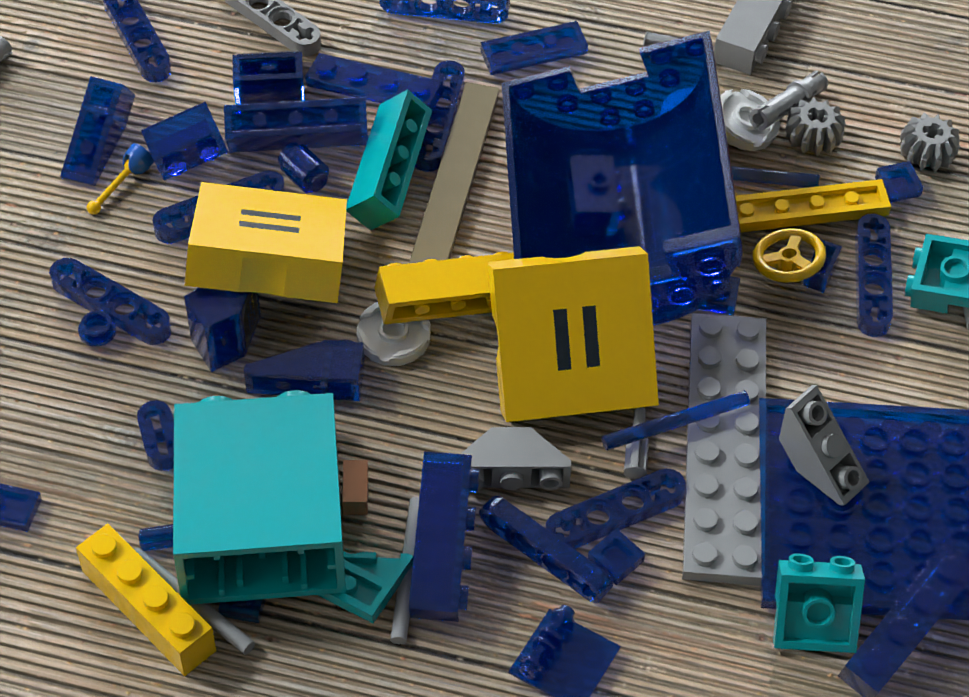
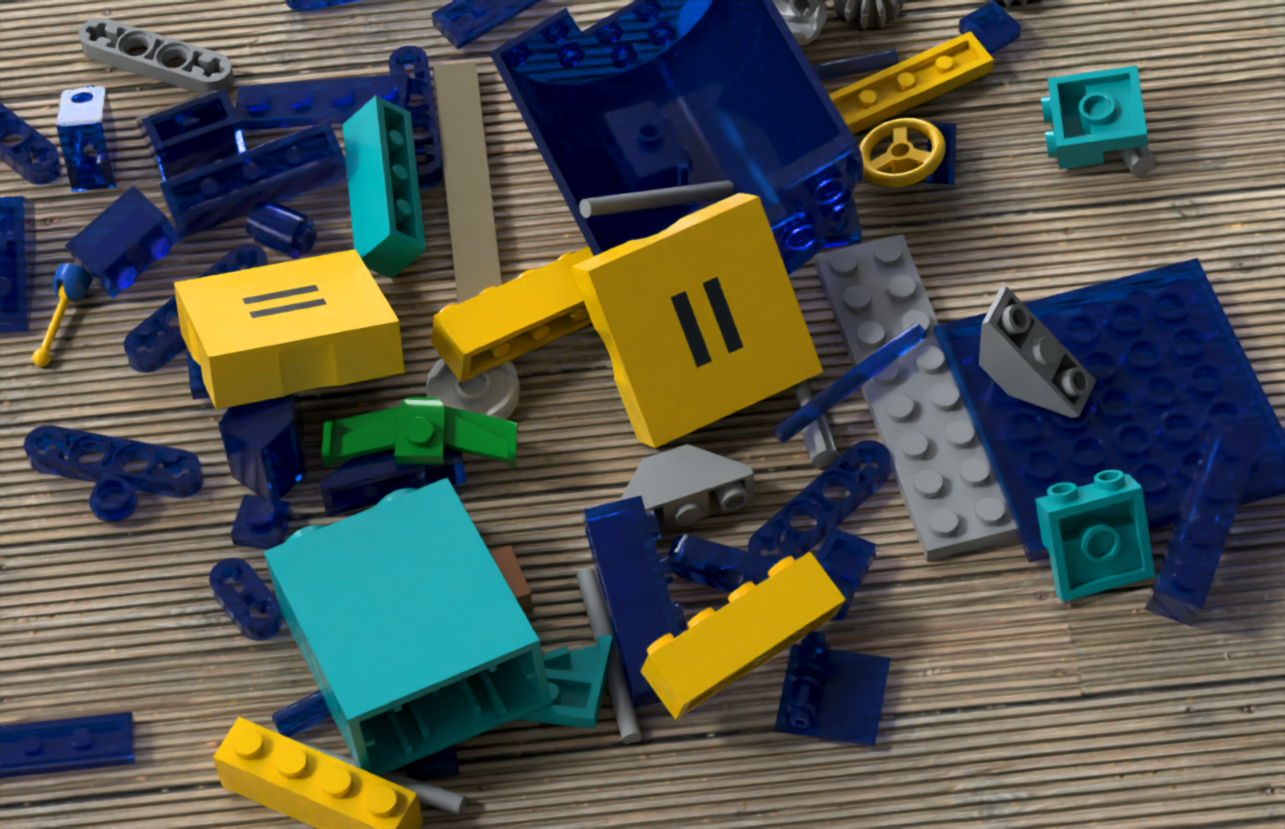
camera: 15 degrees left, 0 degrees up
(195, 381) = (261, 522): none -> clear blue plate
(197, 46) = (82, 120): none -> clear blue torso
(332, 353) = (420, 433): none -> green plate
(506, 589) = (741, 634): none -> yellow brick
(583, 231) = (656, 198): none -> light grey bar
(873, 274) = (1005, 144): clear blue beam -> none

